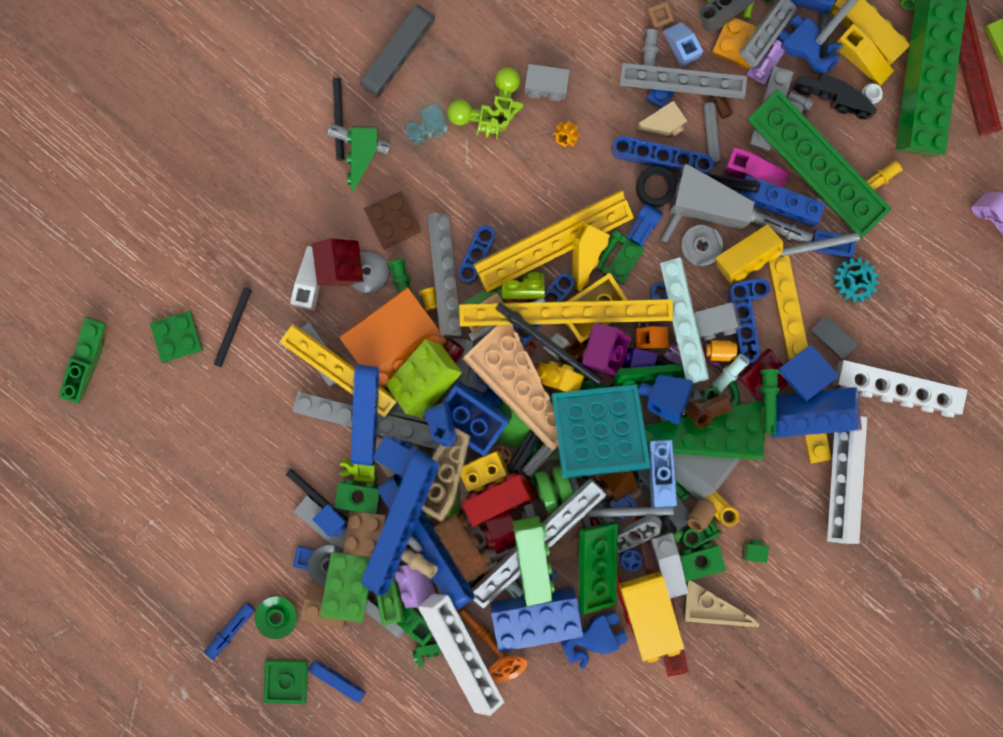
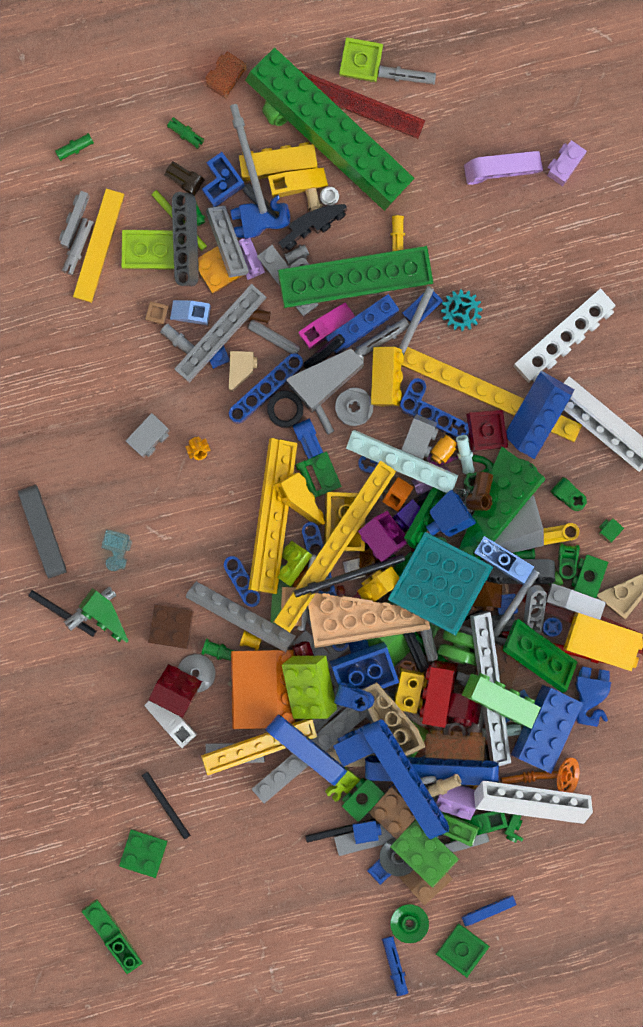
camera: 50 degrees left, 0 degrees up
(461, 112) = (126, 465): lime piece -> none
(701, 515) = (555, 551): medium nougat brick -> none
(760, 490) = (566, 491): none -> green piece
(770, 391) = (498, 436): green pin -> none
(808, 373) = (506, 397): blue tile -> none
(834, 337) = (493, 357): dark grey slope -> none
(860, 79) = (312, 198): none -> tan pin

